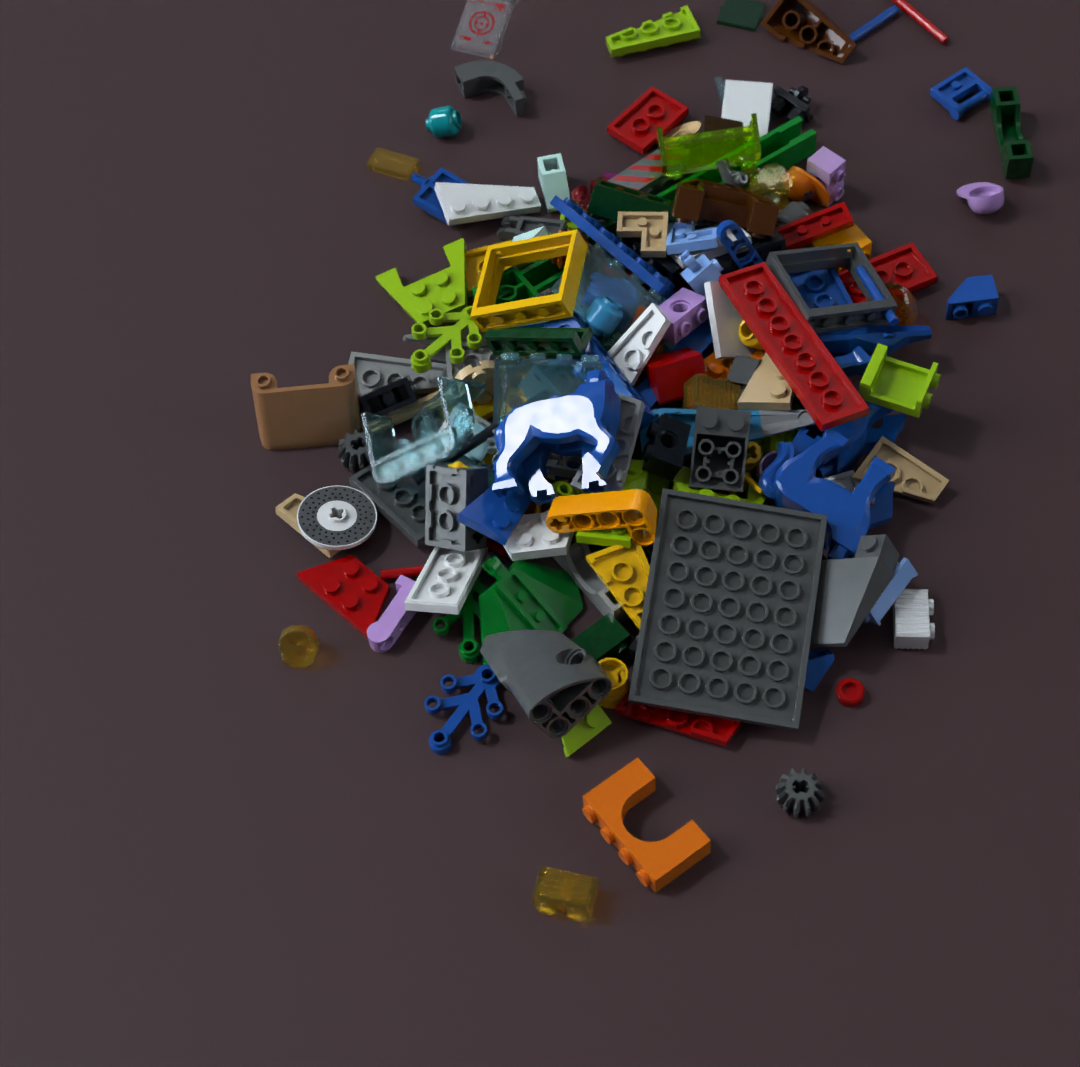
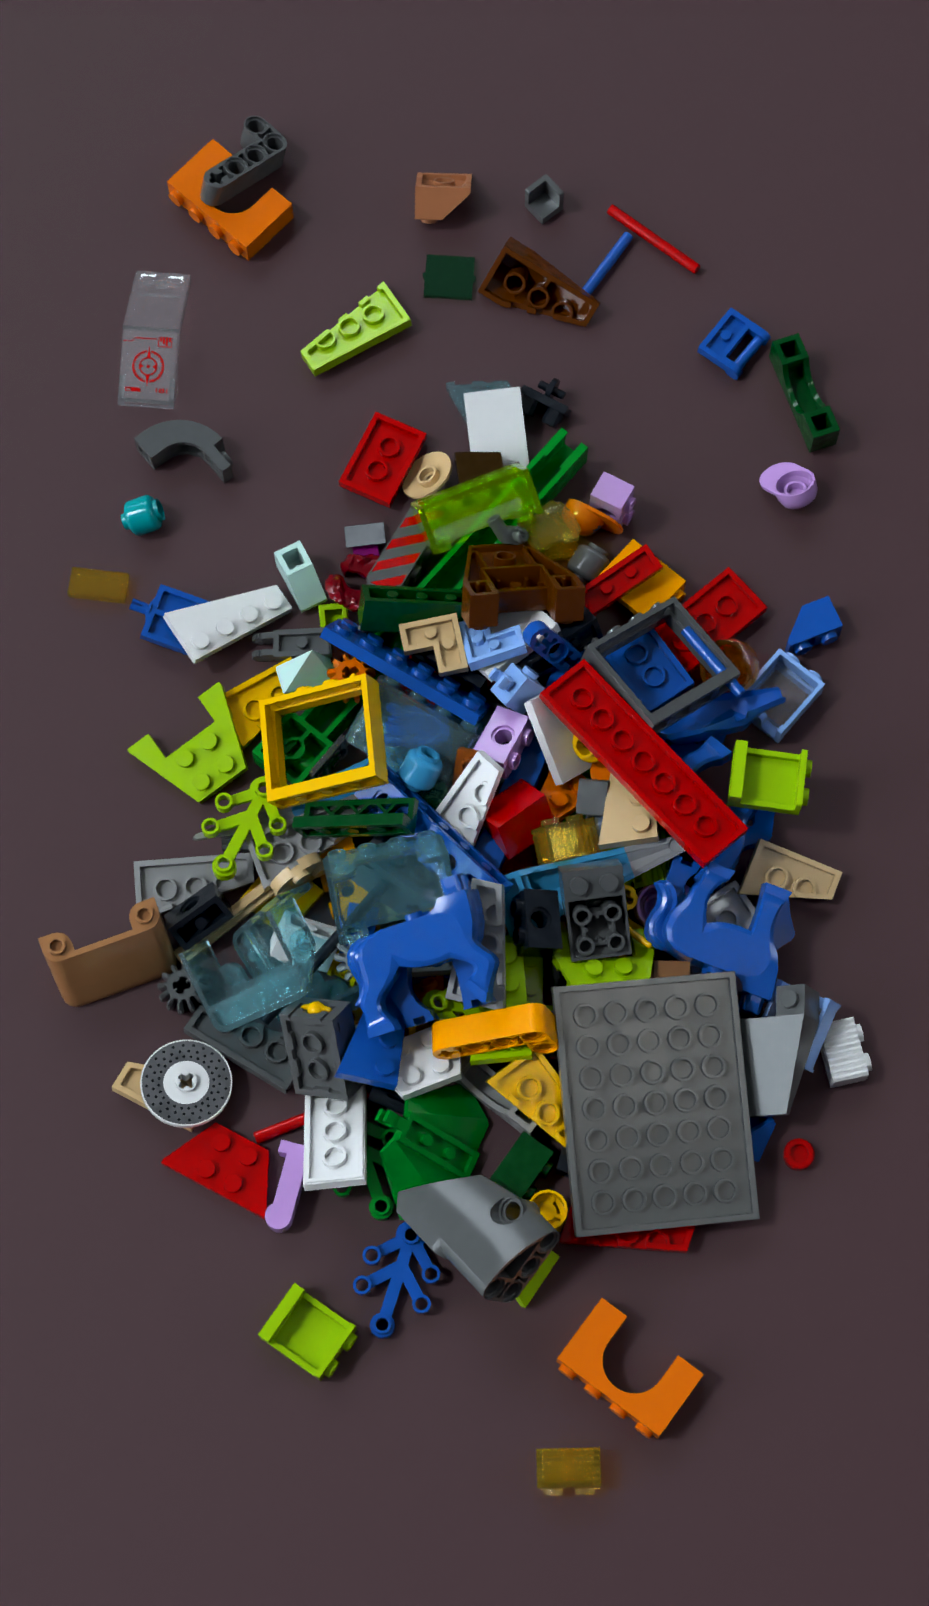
camera: 20 degrees left, 15 degrees up
(298, 646) = (194, 1253): clear yellow hair -> none
(373, 730) = (308, 1333): none -> lime panel
(613, 168) = (364, 535): none -> piece
(799, 792) = (783, 1299): dark grey gear -> none
(947, 340) = (796, 685): none -> window

